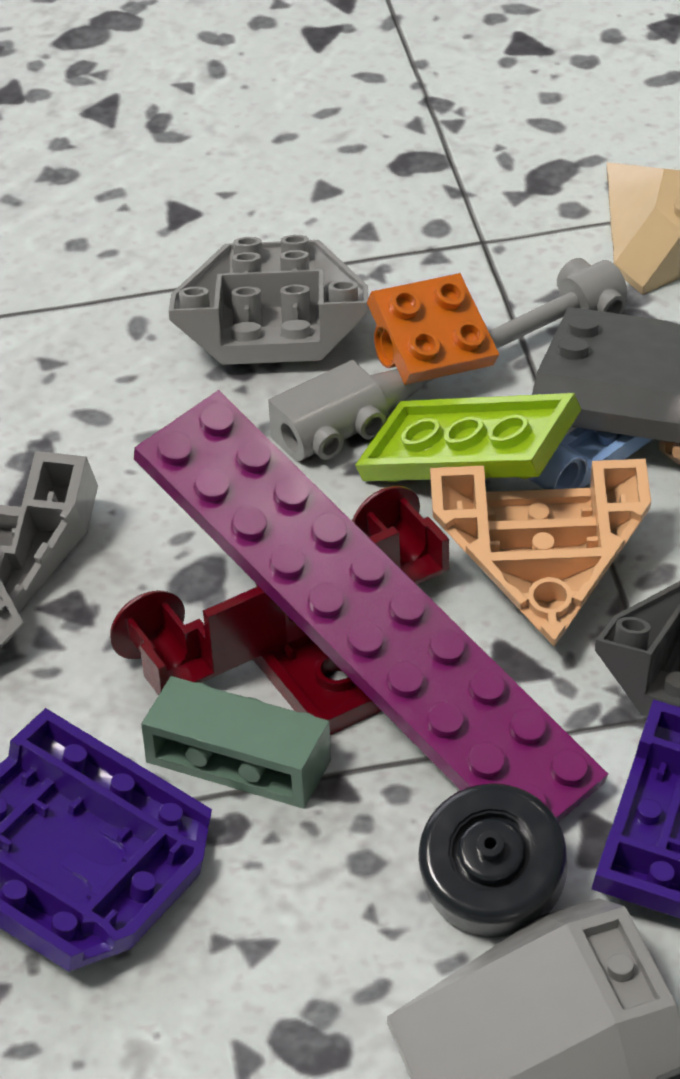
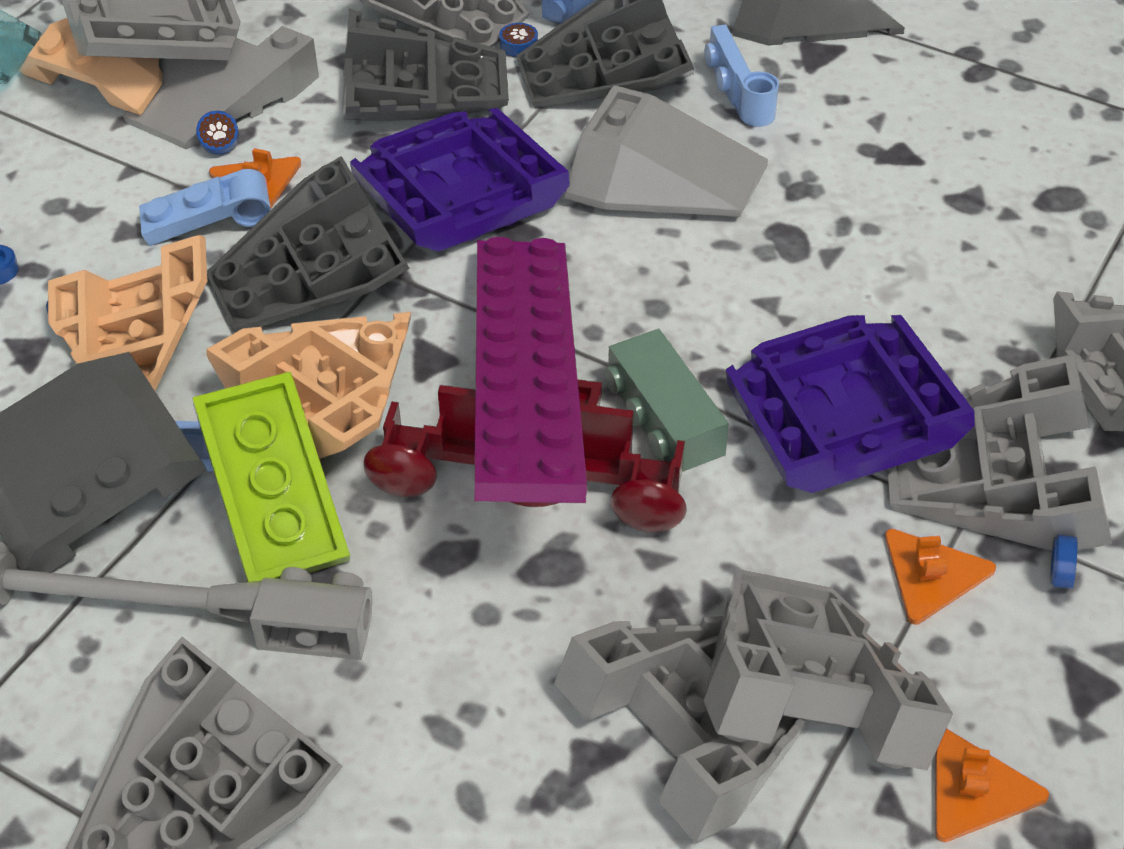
camera: 140 degrees left, 5 degrees up
(430, 329) = (164, 593): orange plate -> none
(492, 859) = (604, 224): black wheel -> none

